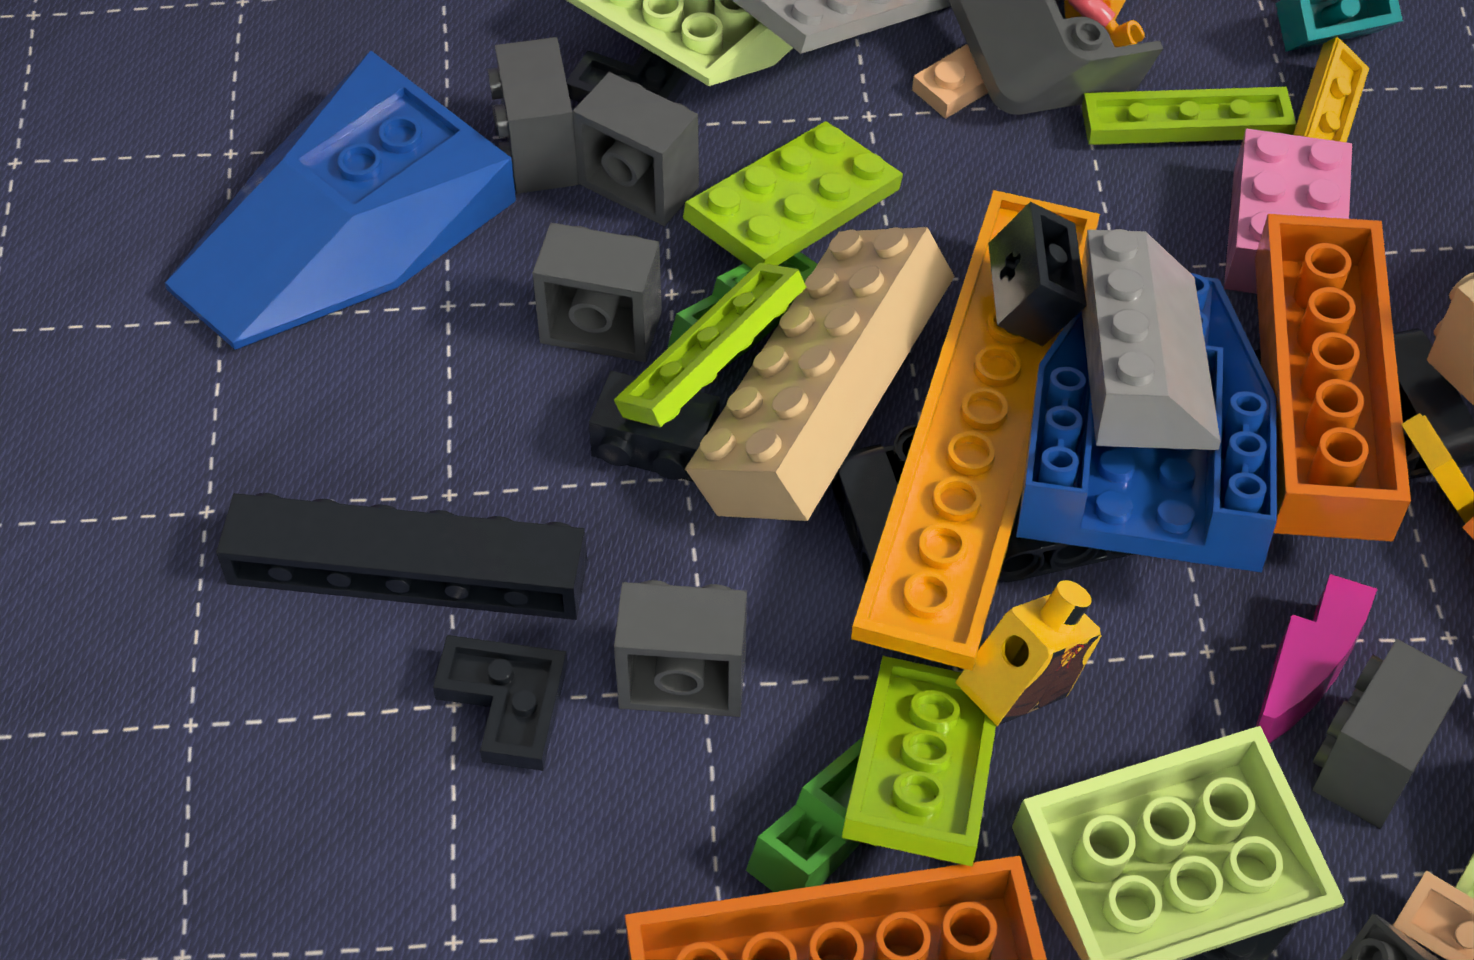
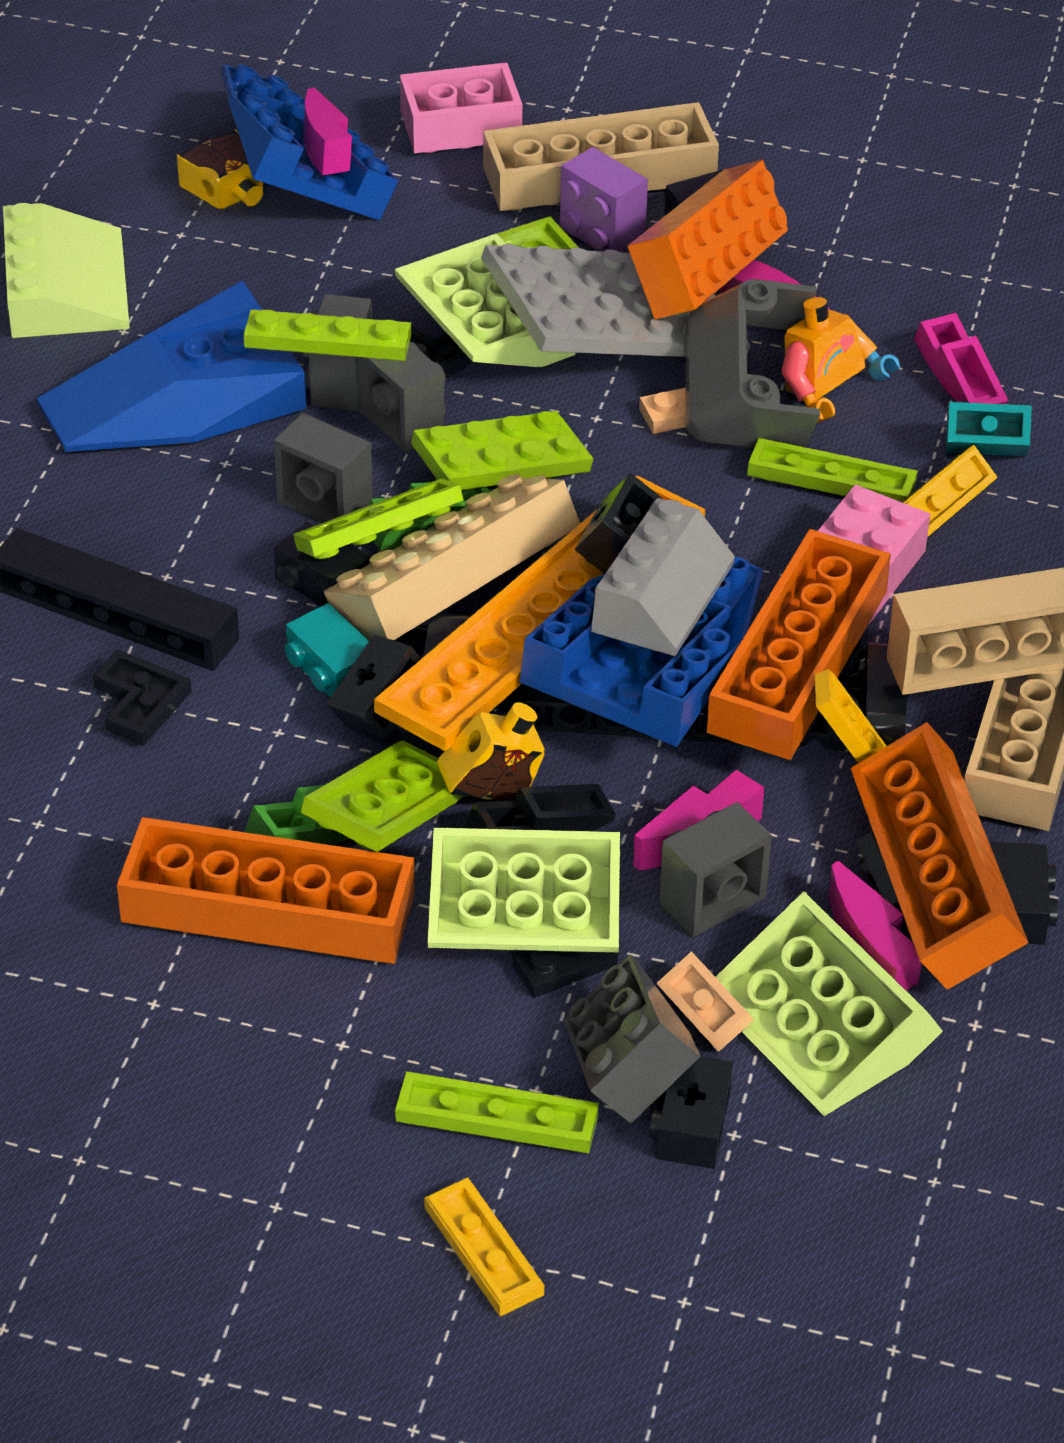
camera: 20 degrees right, 10 degrees down
(119, 94) = (62, 272): none -> yellowish green slope
(531, 103) = (327, 334): none -> lime plate
(681, 648) = (262, 693): dark grey brick -> none
(729, 546) = (324, 646): none -> teal brick
(818, 621) = (370, 675): none -> black brick
(1111, 718) = (546, 808): none -> black slope

